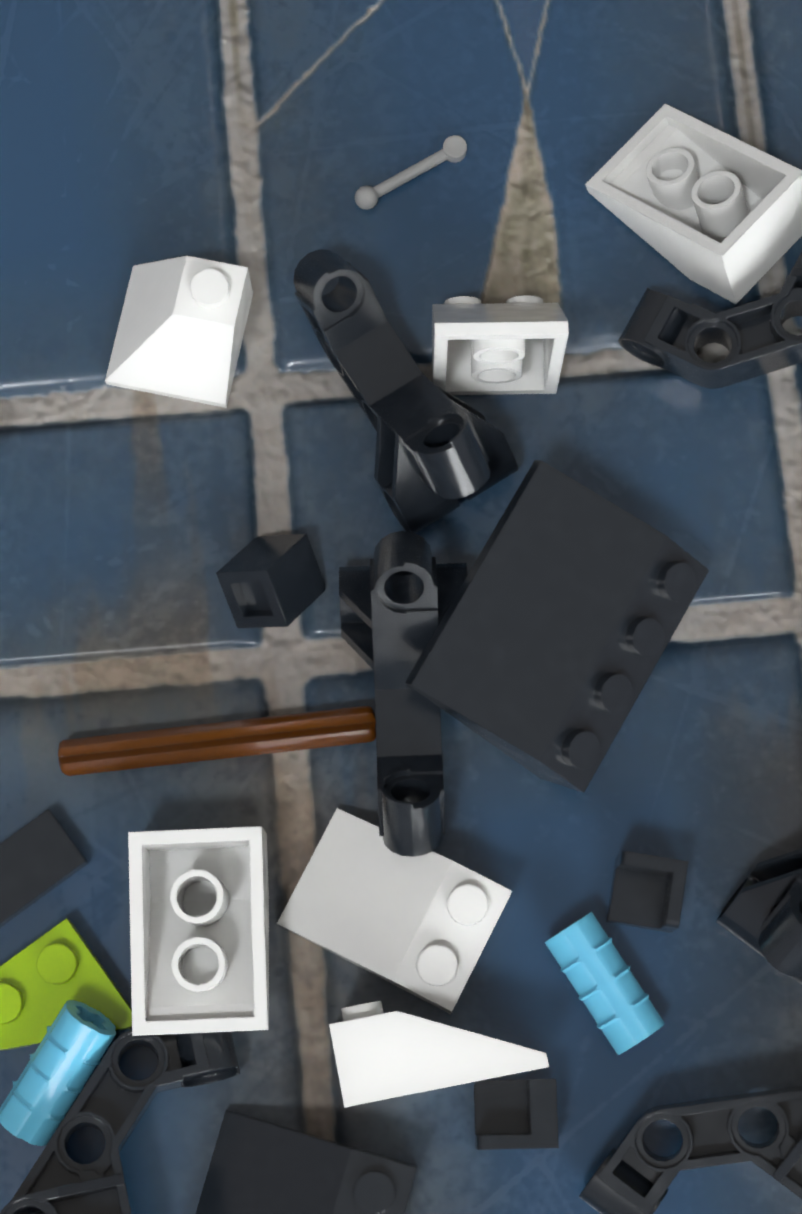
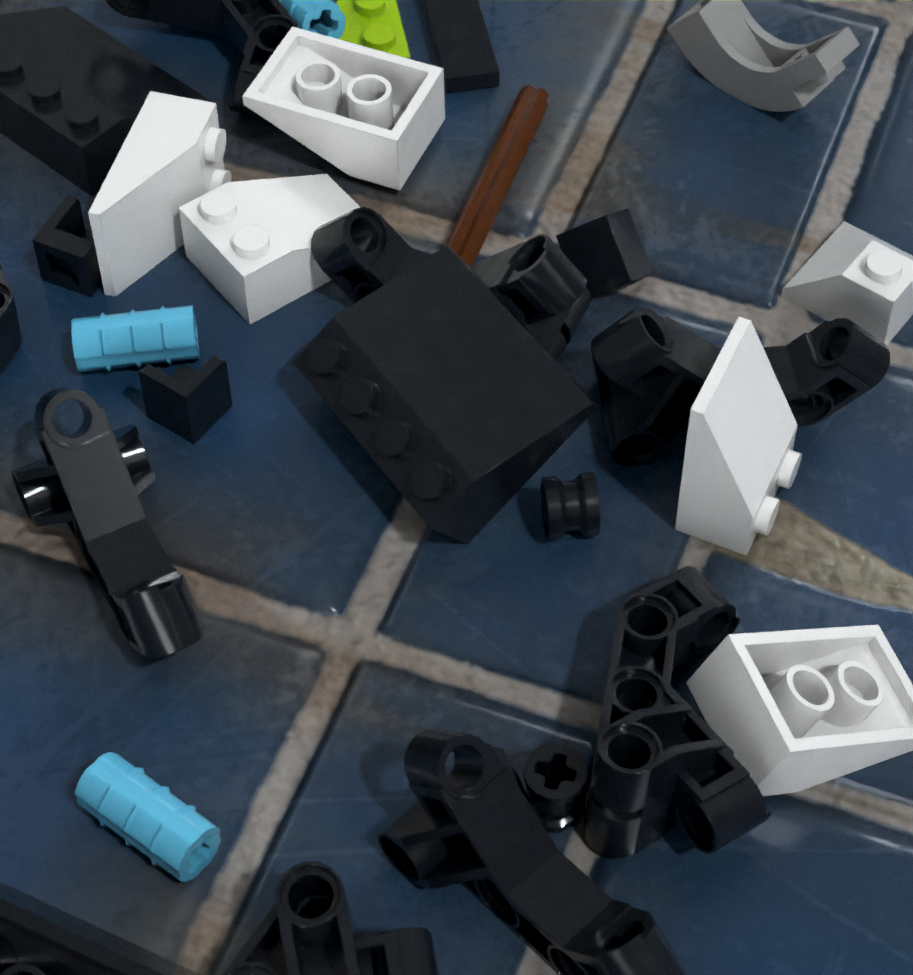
camera: 115 degrees right, 25 degrees down
(602, 472) = (570, 506): none -> black wheel

